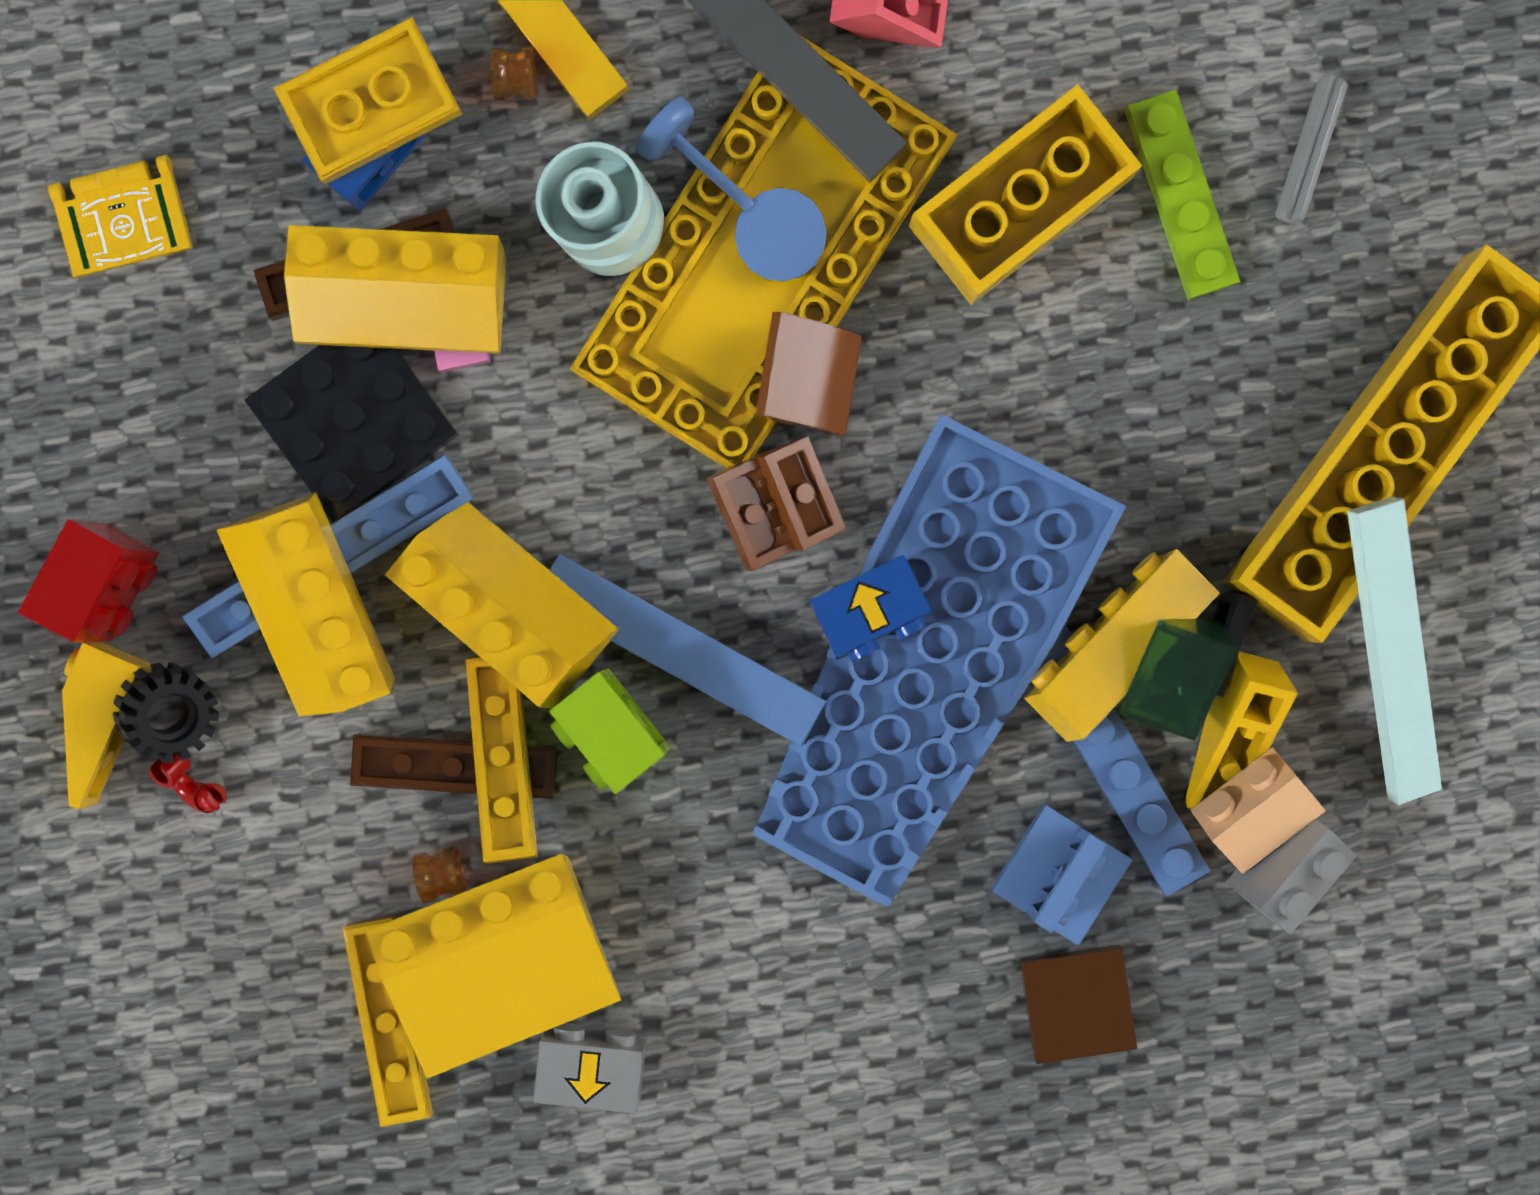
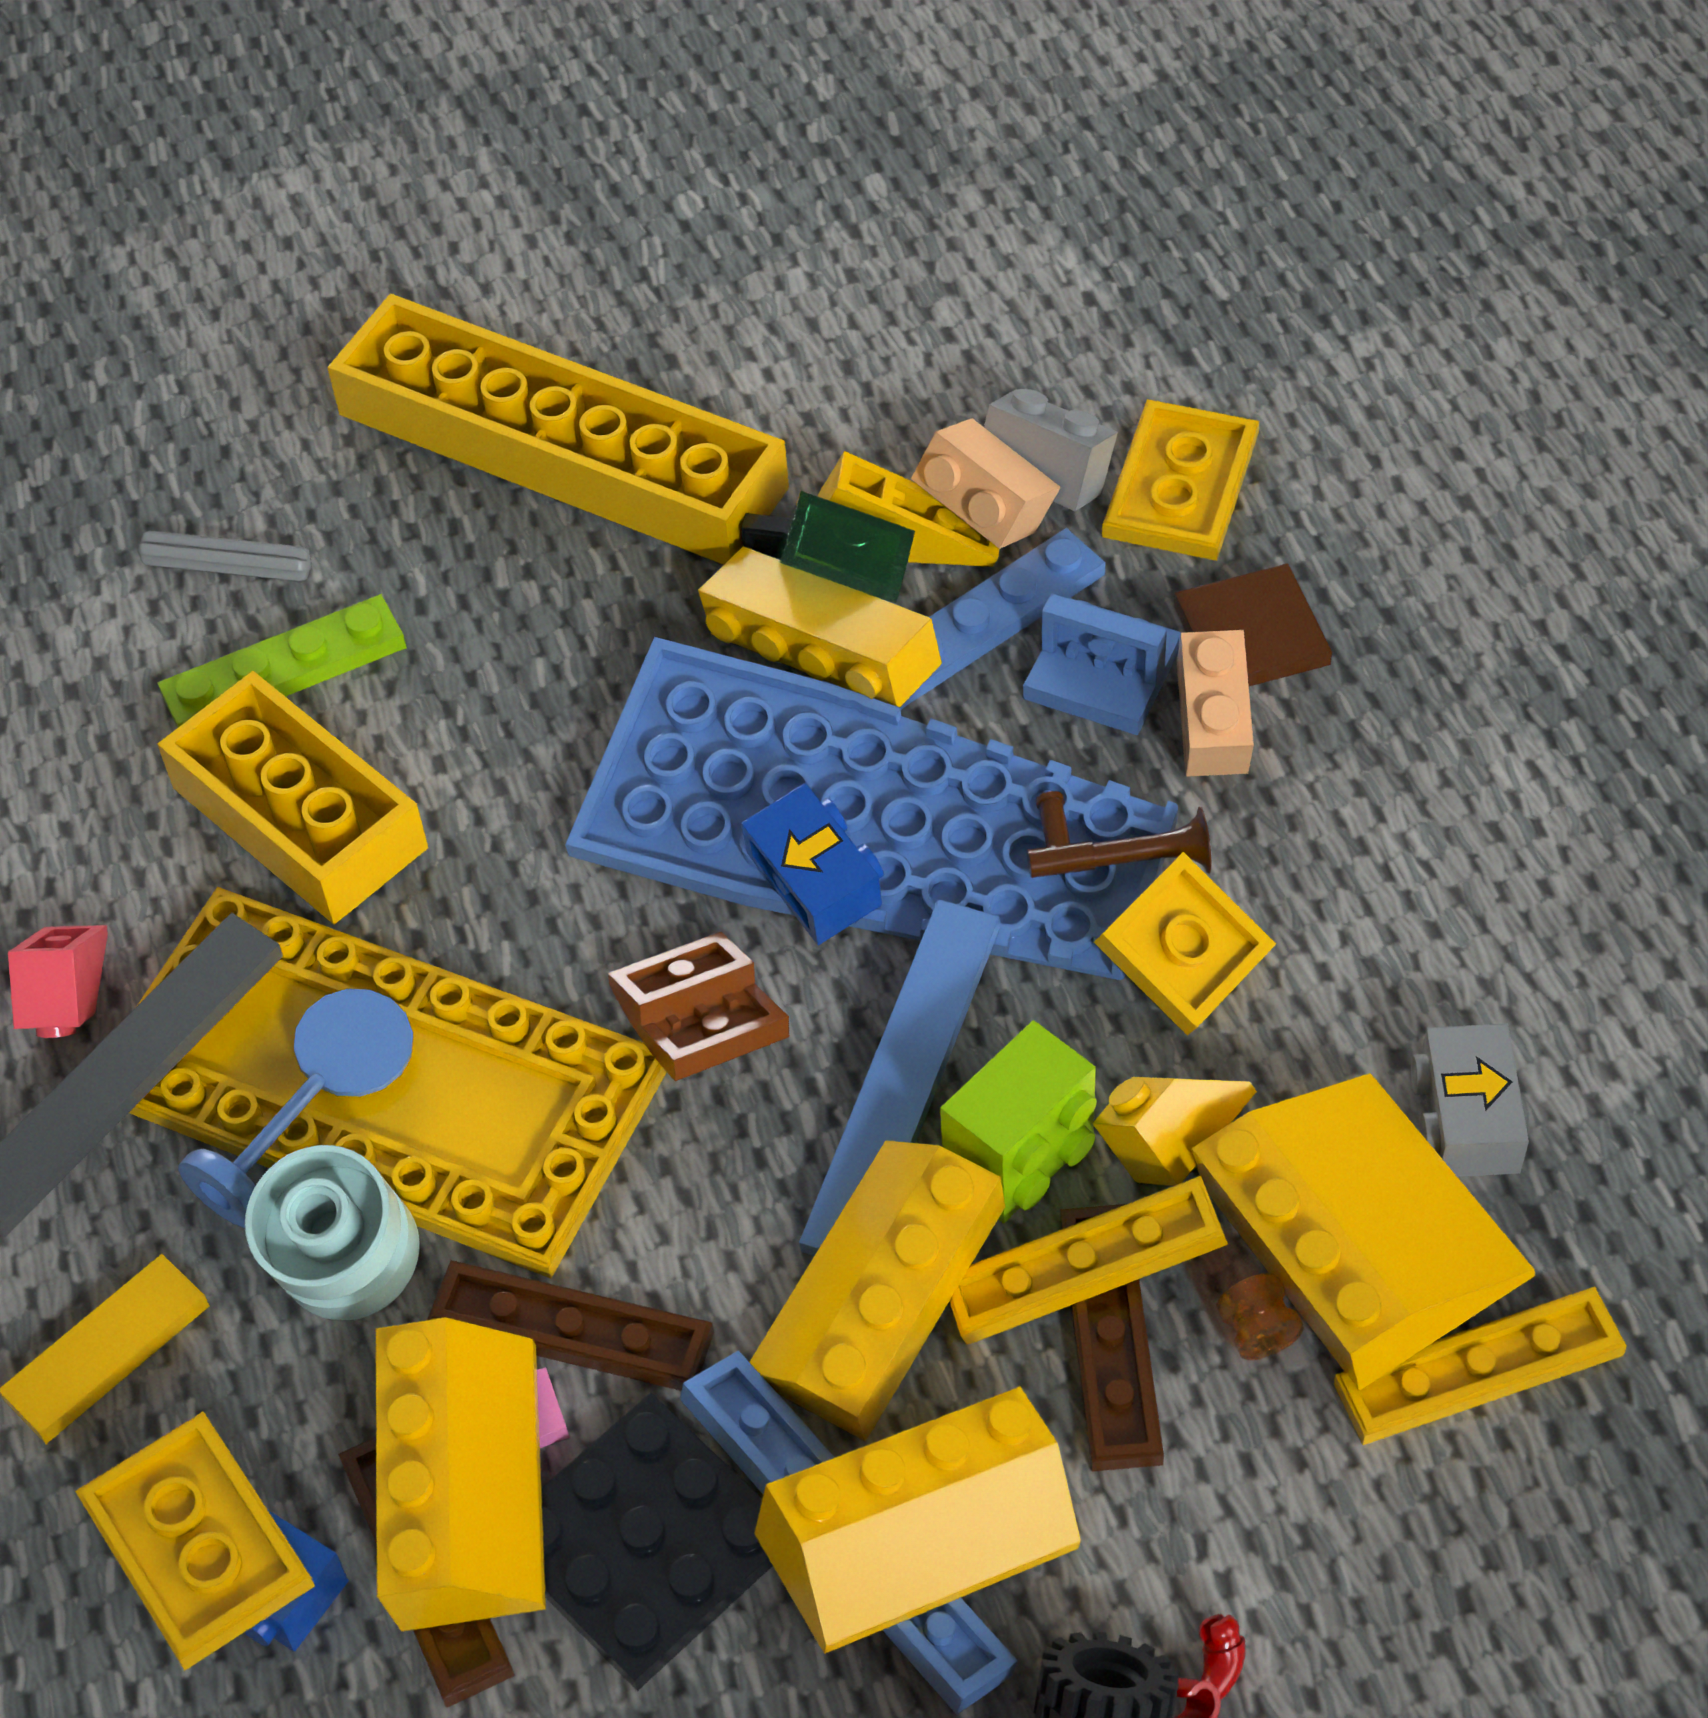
camera: 90 degrees left, 35 degrees down
(514, 73) = (148, 1388): clear orange wheel -> none
(525, 380) = (578, 1325): none -> reddish brown tile
(608, 847) = (1160, 1119): none -> yellow slope
(761, 885) = (1185, 943): none -> yellow plate
(808, 374) = (529, 980): slope -> none
(849, 805) = (1067, 857): none -> reddish brown piece
(985, 957) = (1214, 703): none -> light nougat brick
(1254, 979) = (1181, 479): none -> yellow tile
(1395, 649) = (782, 387): light aqua tile -> none

